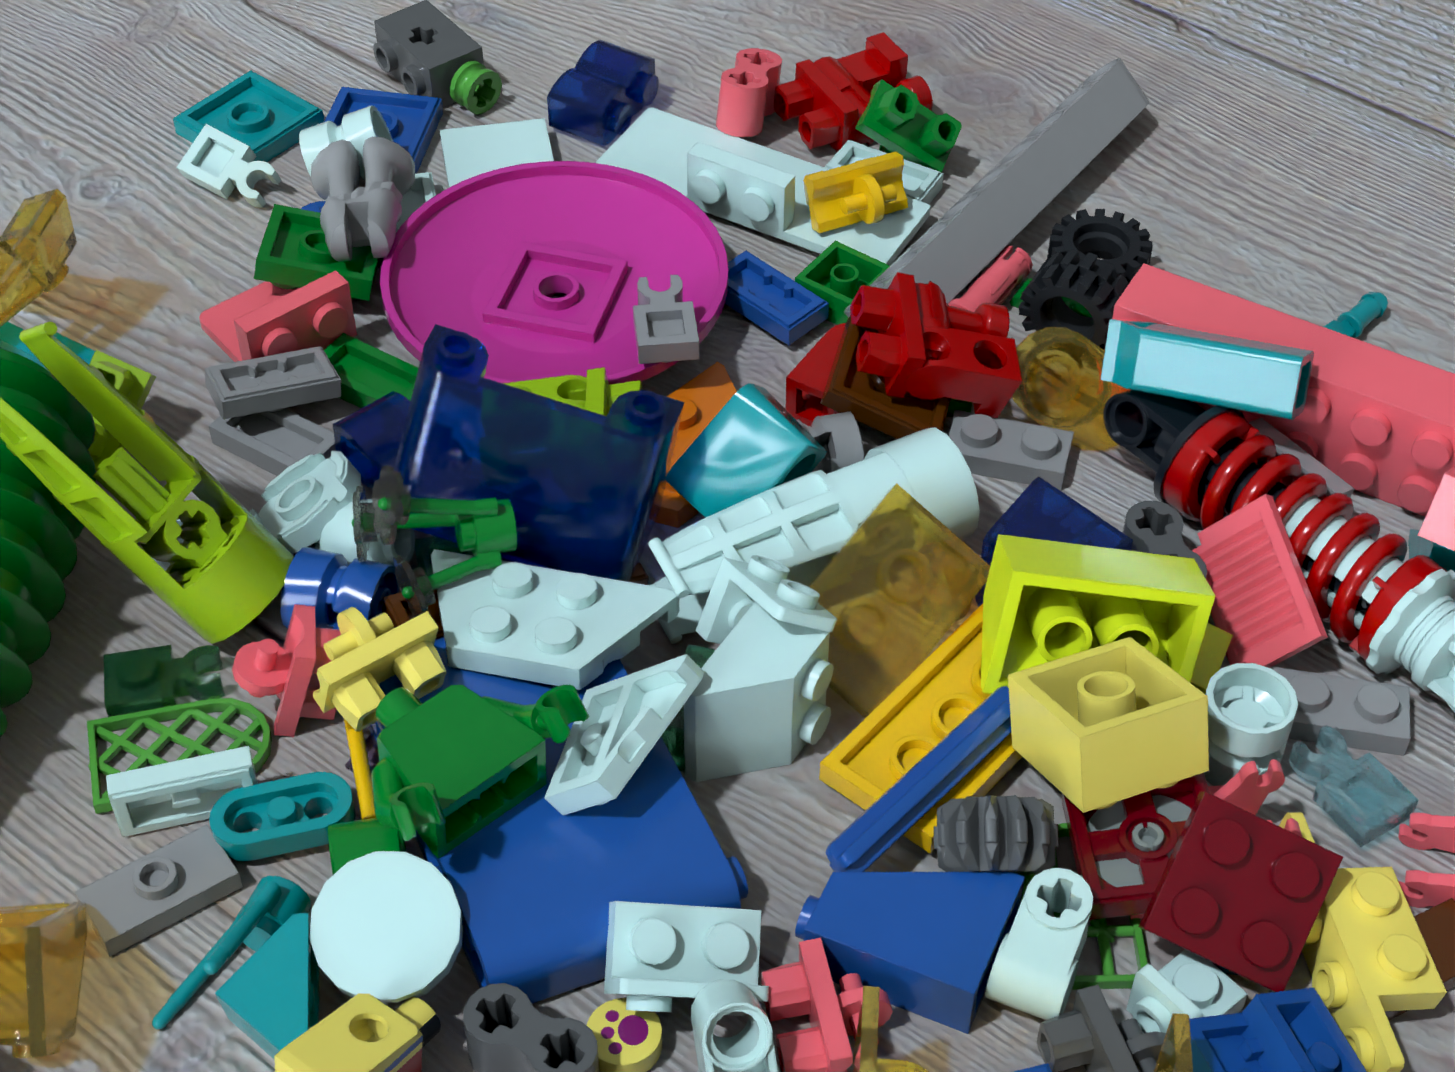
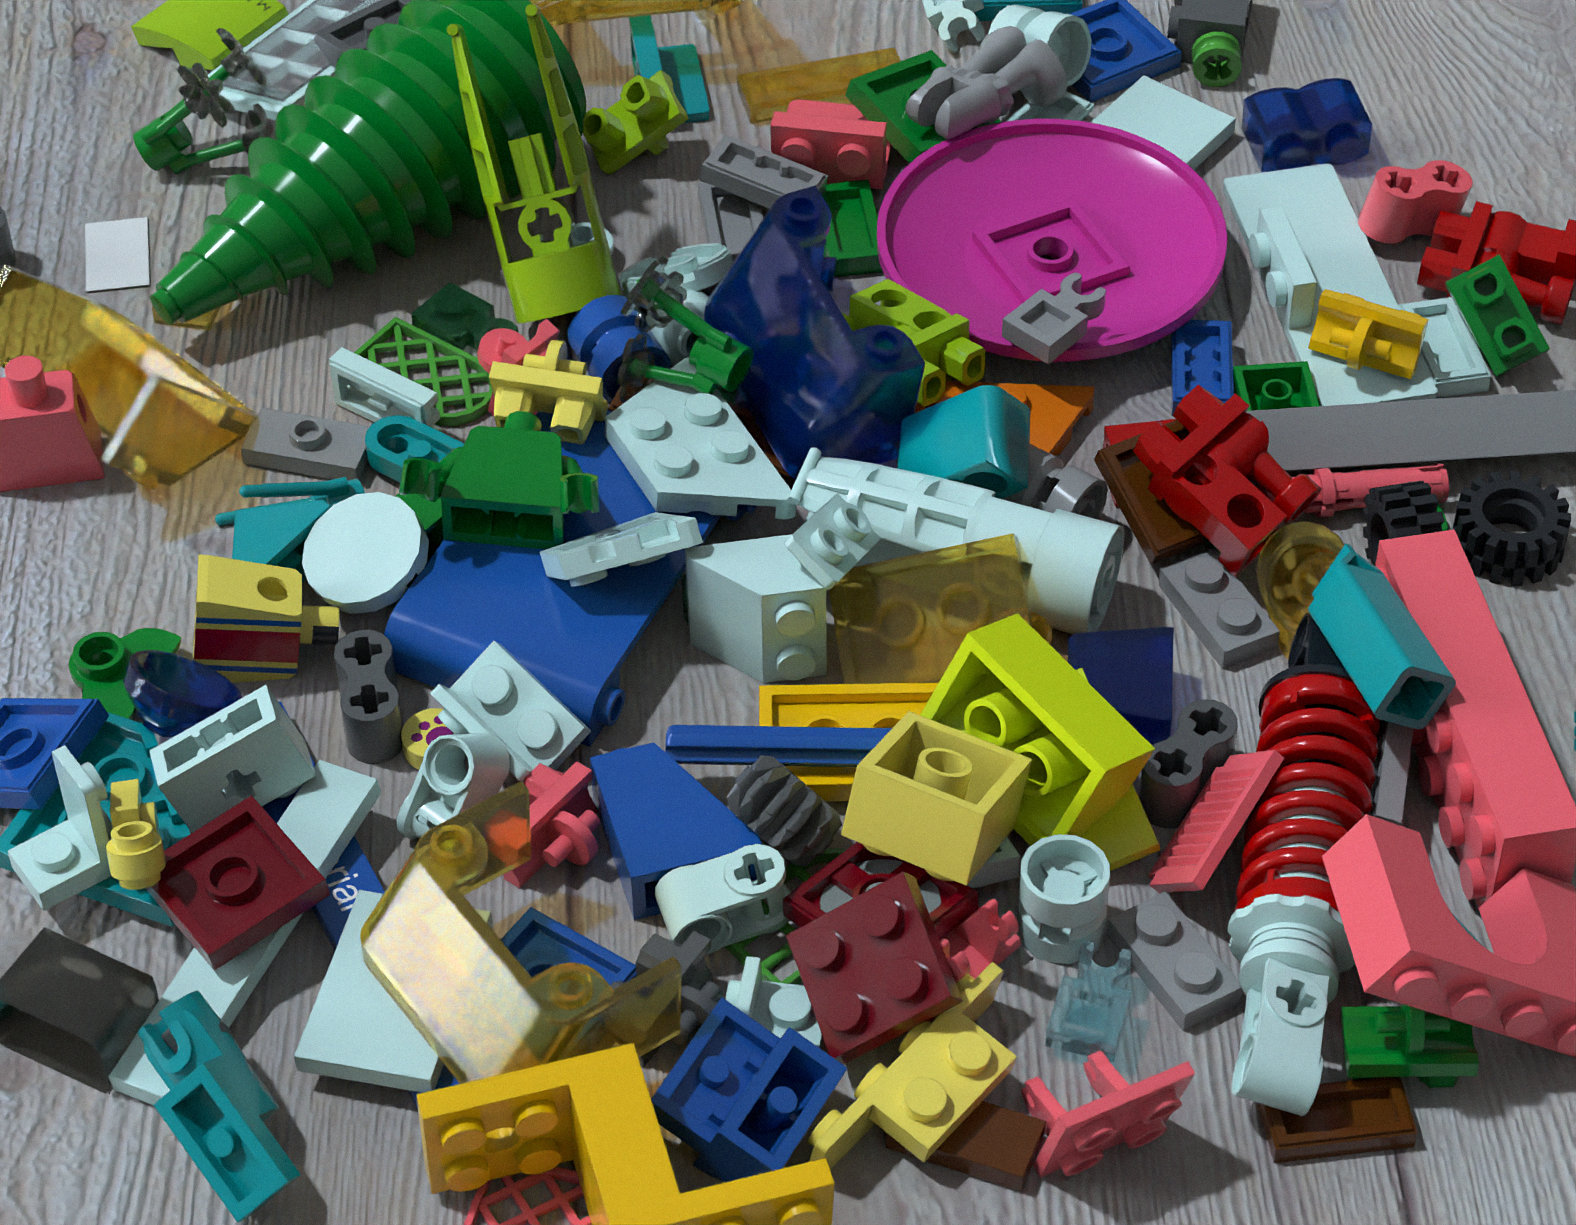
camera: 50 degrees right, 0 degrees up
(210, 277) = (818, 80): none -> clear yellow tile

